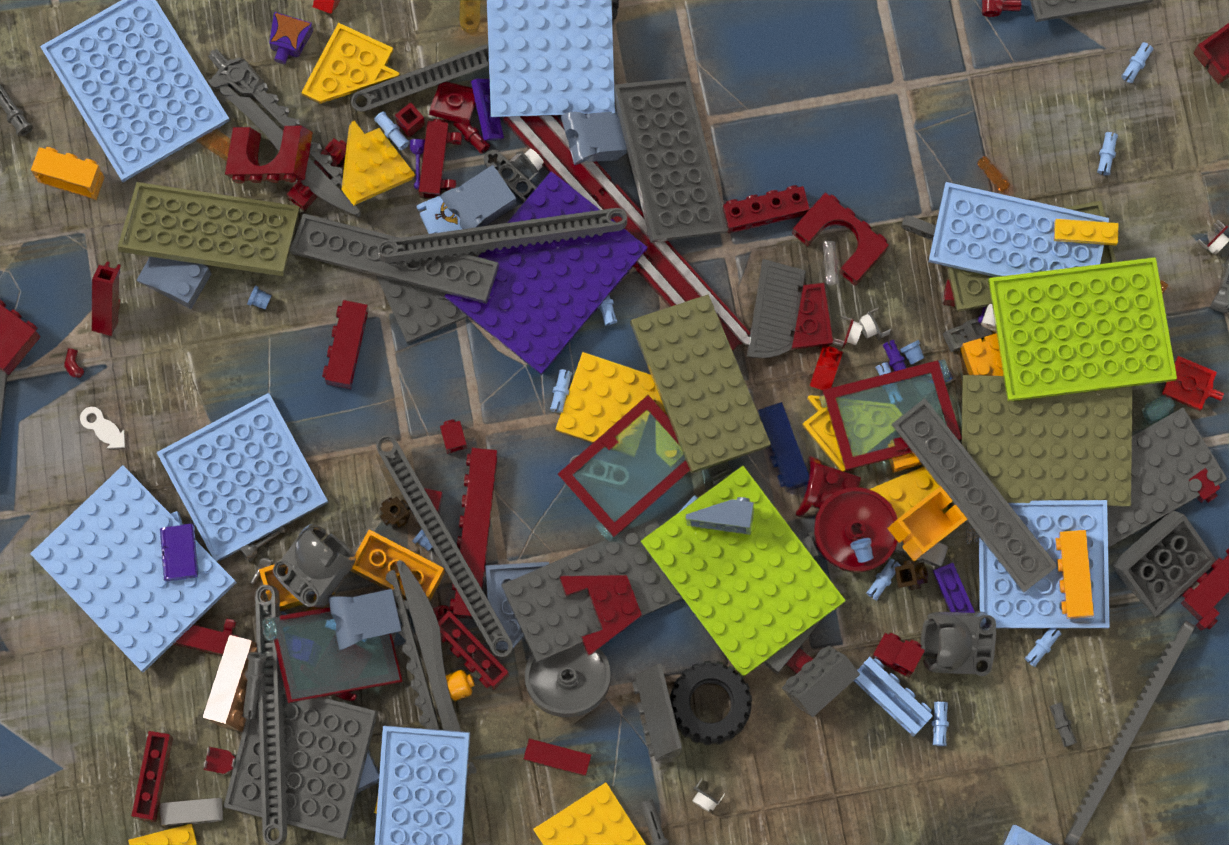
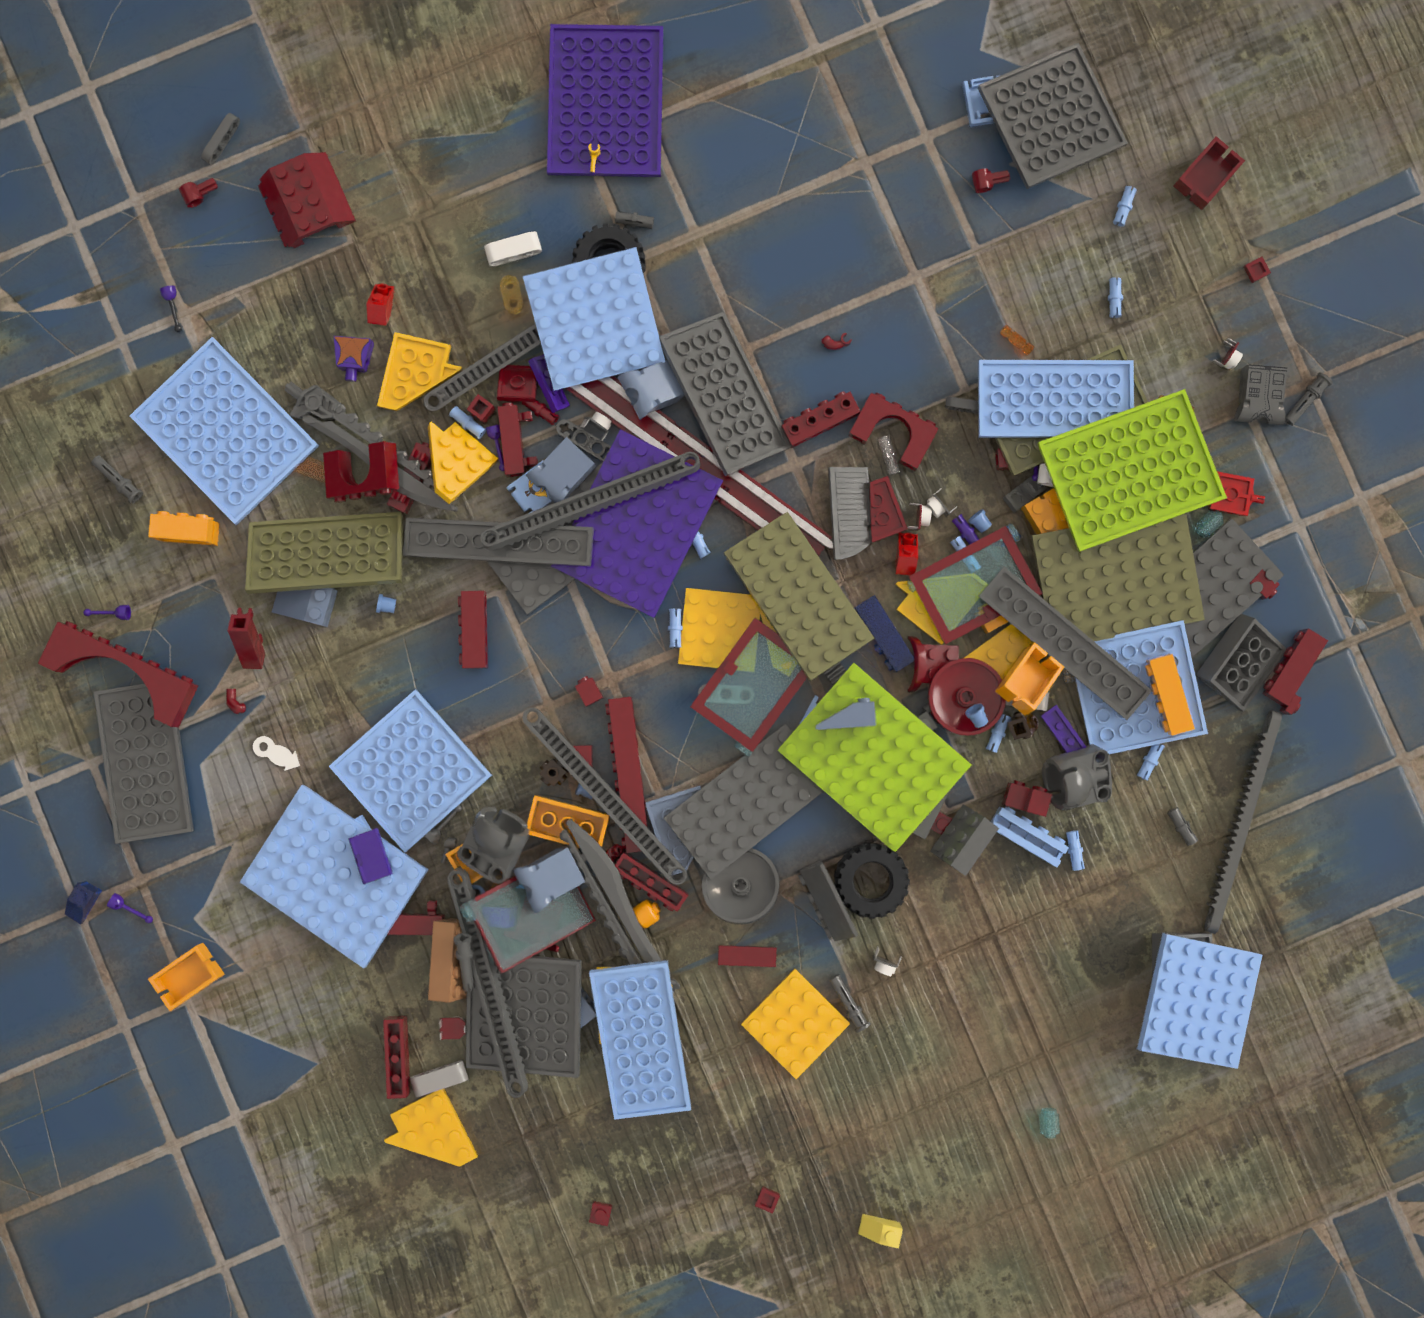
camera: 10 degrees left, 10 degrees up
(612, 603) = (765, 811): dark red wing -> none
(795, 136) = (834, 345): none -> dark red arm
(1086, 232) = (1115, 378): yellow plate -> none

